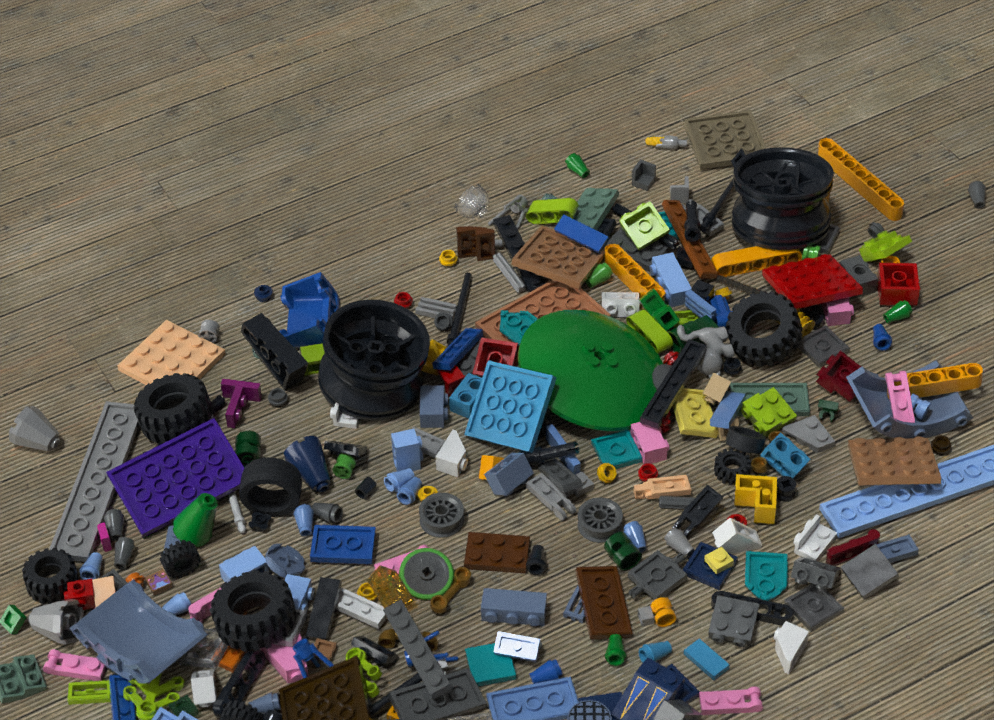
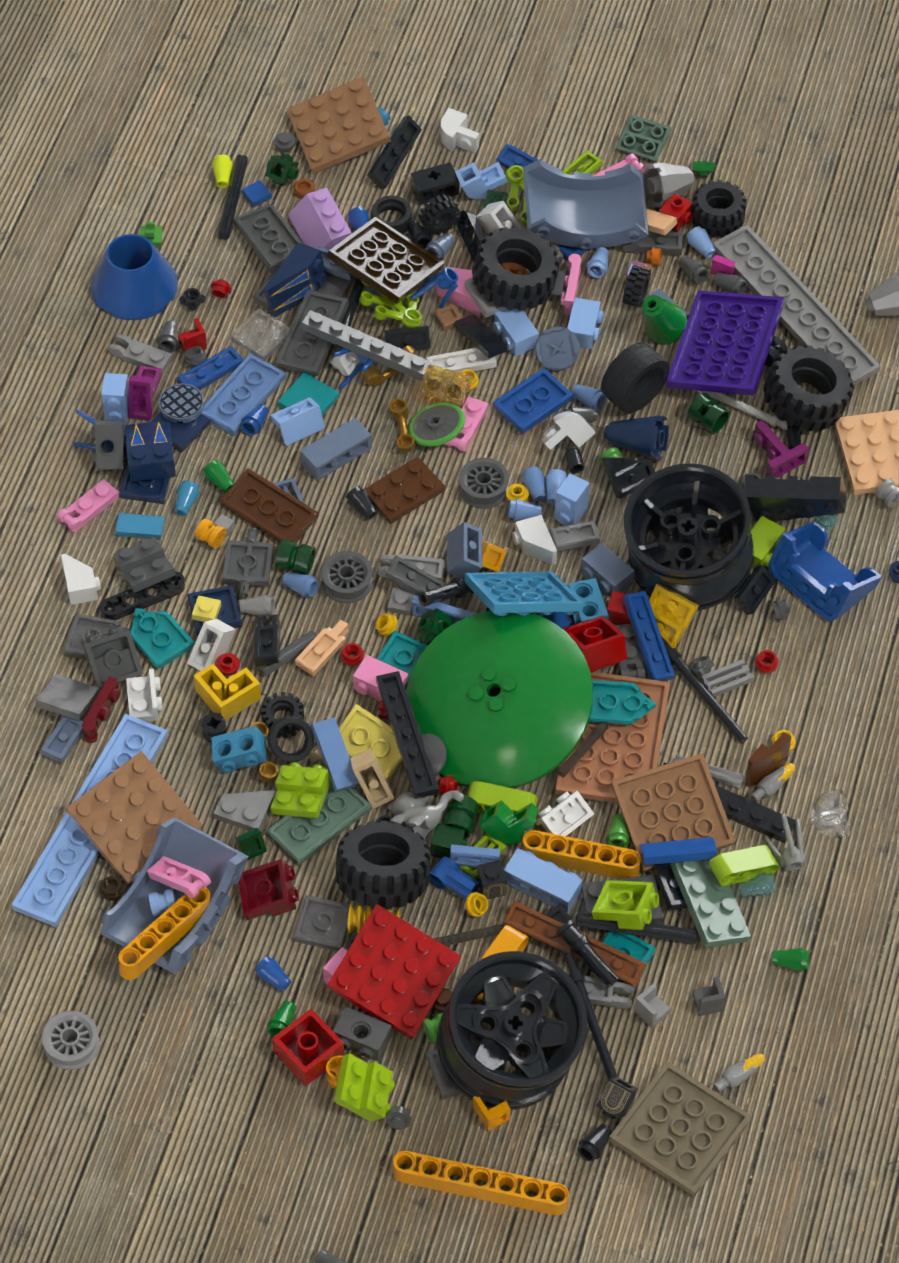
camera: 135 degrees right, 10 degrees up
(351, 500) = (568, 424): none -> white brick
(438, 479) = (522, 510): none -> medium blue cone
(586, 442) = (432, 625): none -> dark green brick

